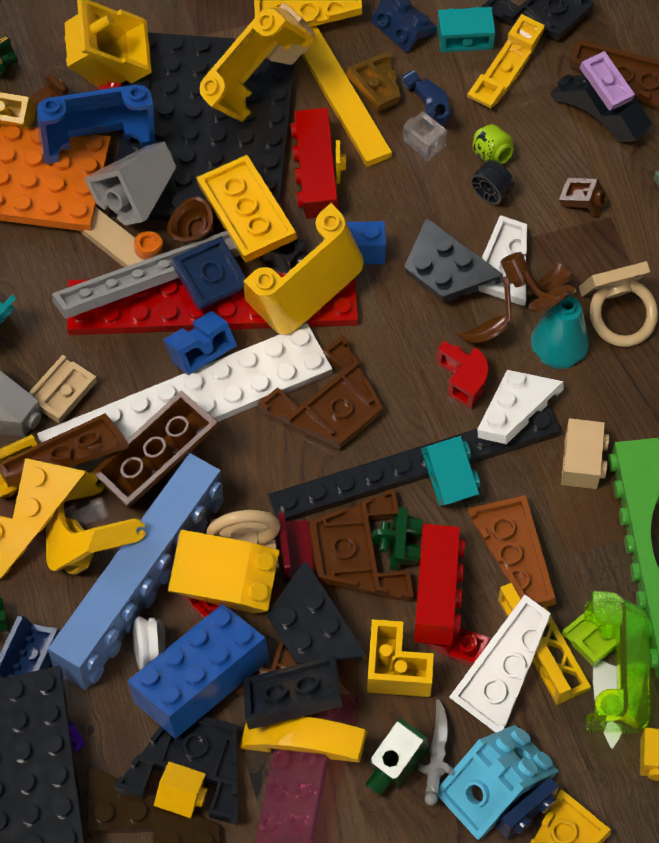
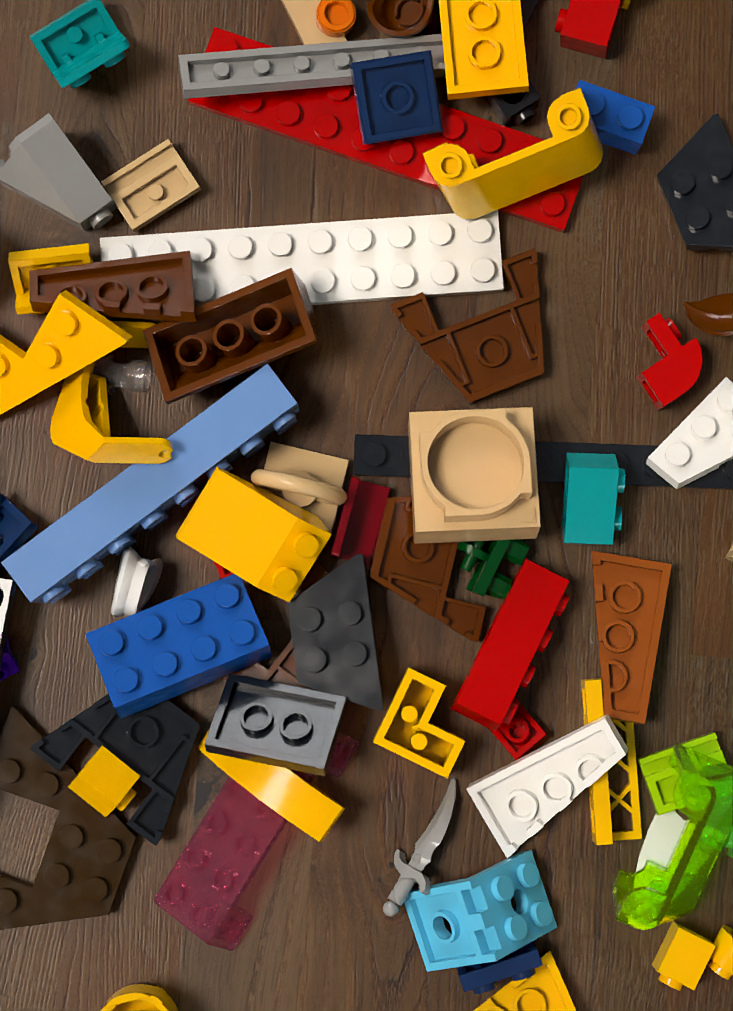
camera: 25 degrees right, 25 degrees up
(202, 344) = (348, 191): blue brick -> none
(362, 478) = (473, 475): none -> tan container
(401, 745) = (383, 835): torso -> none

